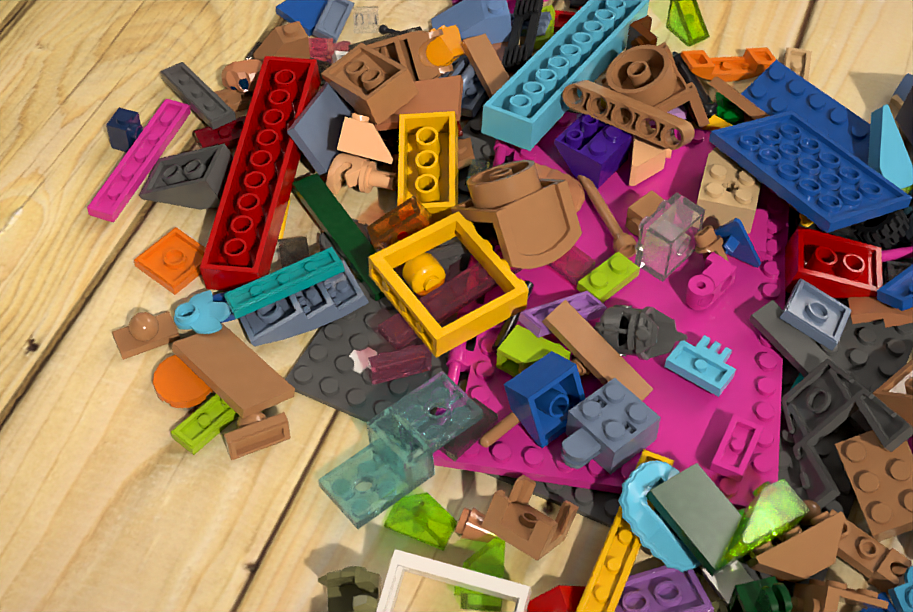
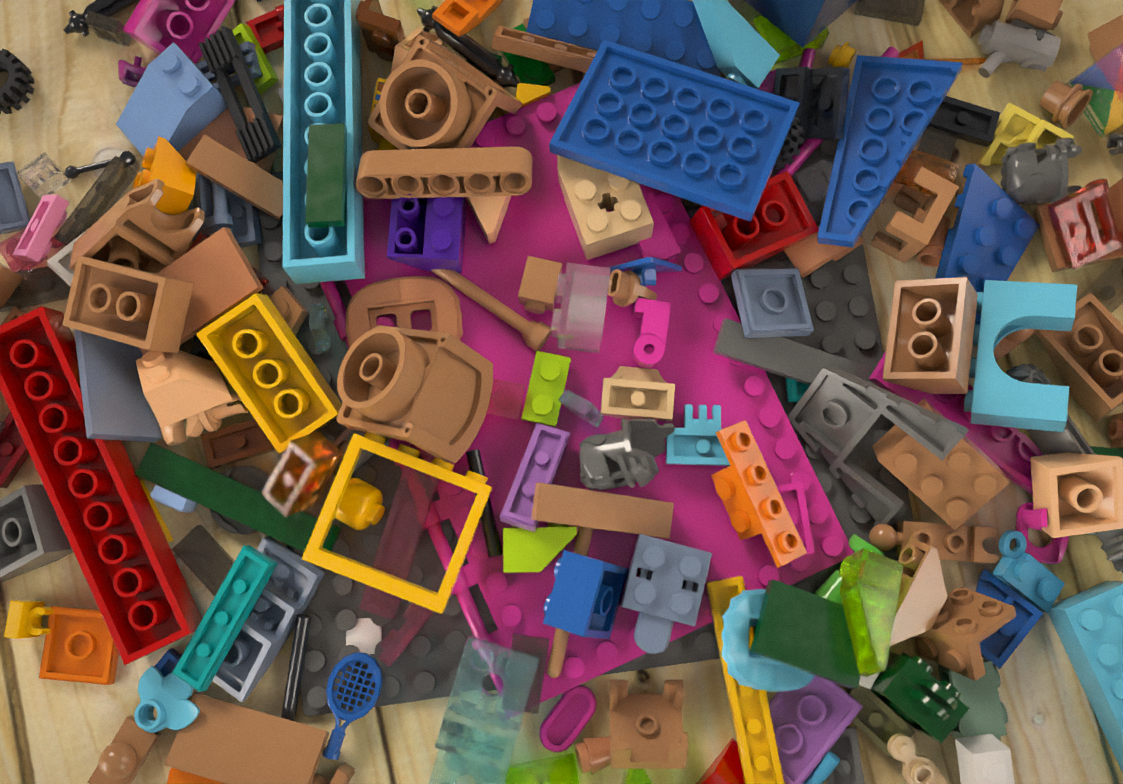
camera: 35 degrees left, 30 degrees up
(156, 222) = (26, 618): none -> yellow tile
(304, 213) = (172, 499): none -> light blue tile
(306, 344) = (296, 667): none -> black bar
(313, 393) = (334, 744): none -> blue piece
(335, 42) = (36, 238): none -> bright pink plate
(367, 206) = (235, 444): none -> reddish brown plate
(469, 493) = (567, 718): none -> dark pink tile
(548, 78) = (326, 175): none -> dark green tile
(625, 294) = (581, 407): none -> clear light blue tile
(686, 316) = (637, 394): none -> tan slope
(718, 411) = (754, 497): none -> orange bracket

